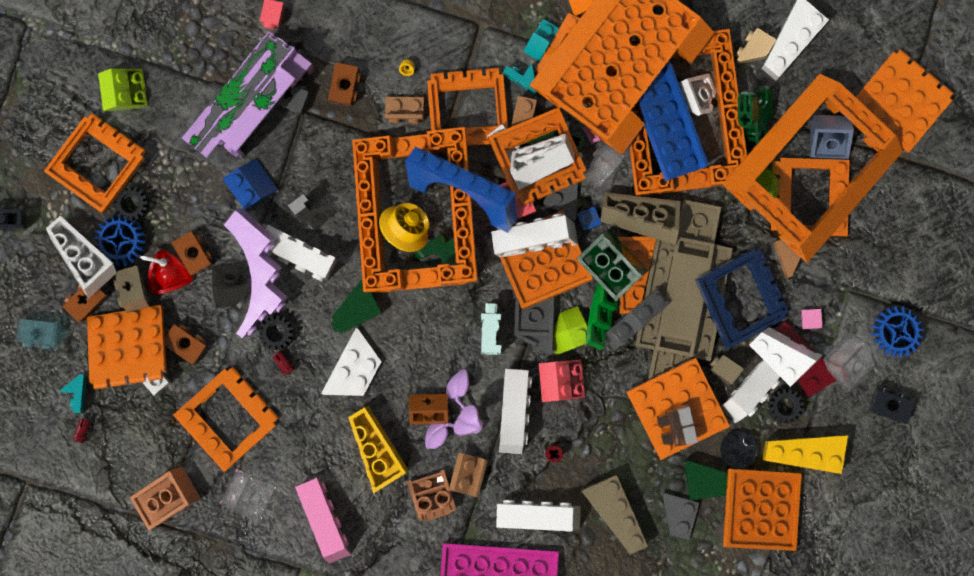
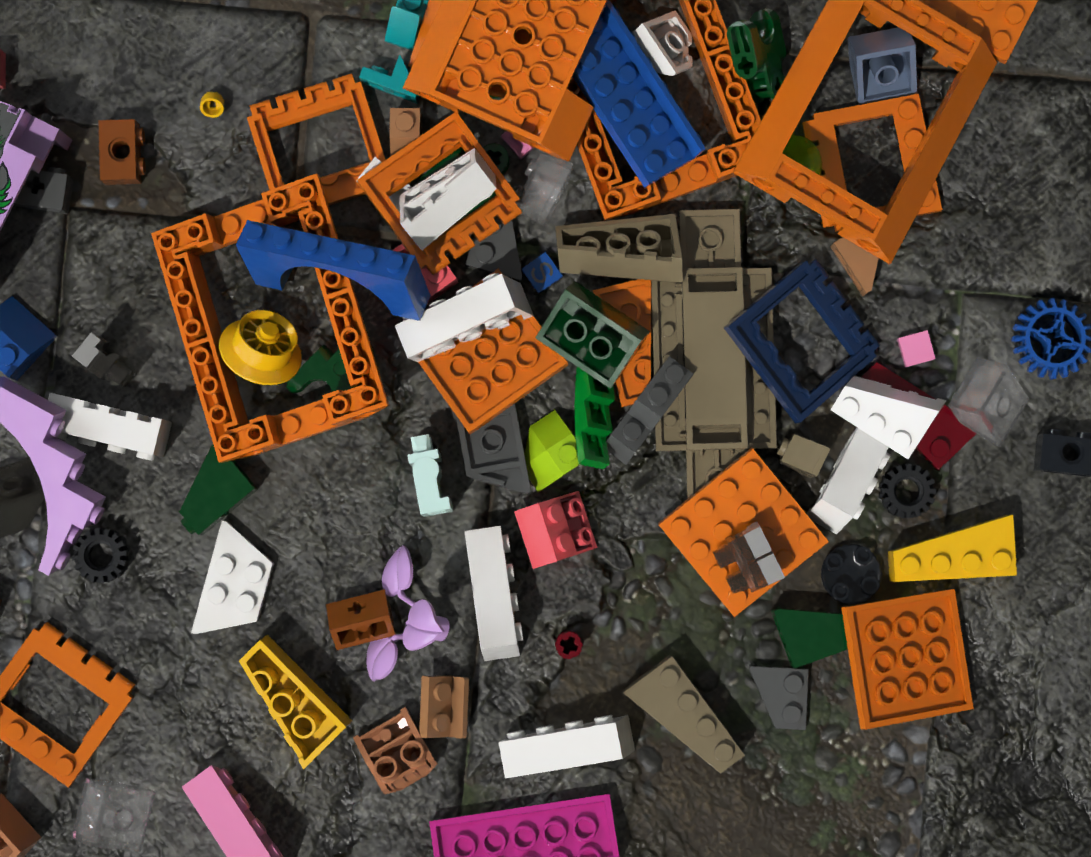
camera: 10 degrees left, 0 degrees up
(283, 363) = (123, 599): dark red pin -> none
(404, 109) = (222, 169): medium nougat bracket -> none

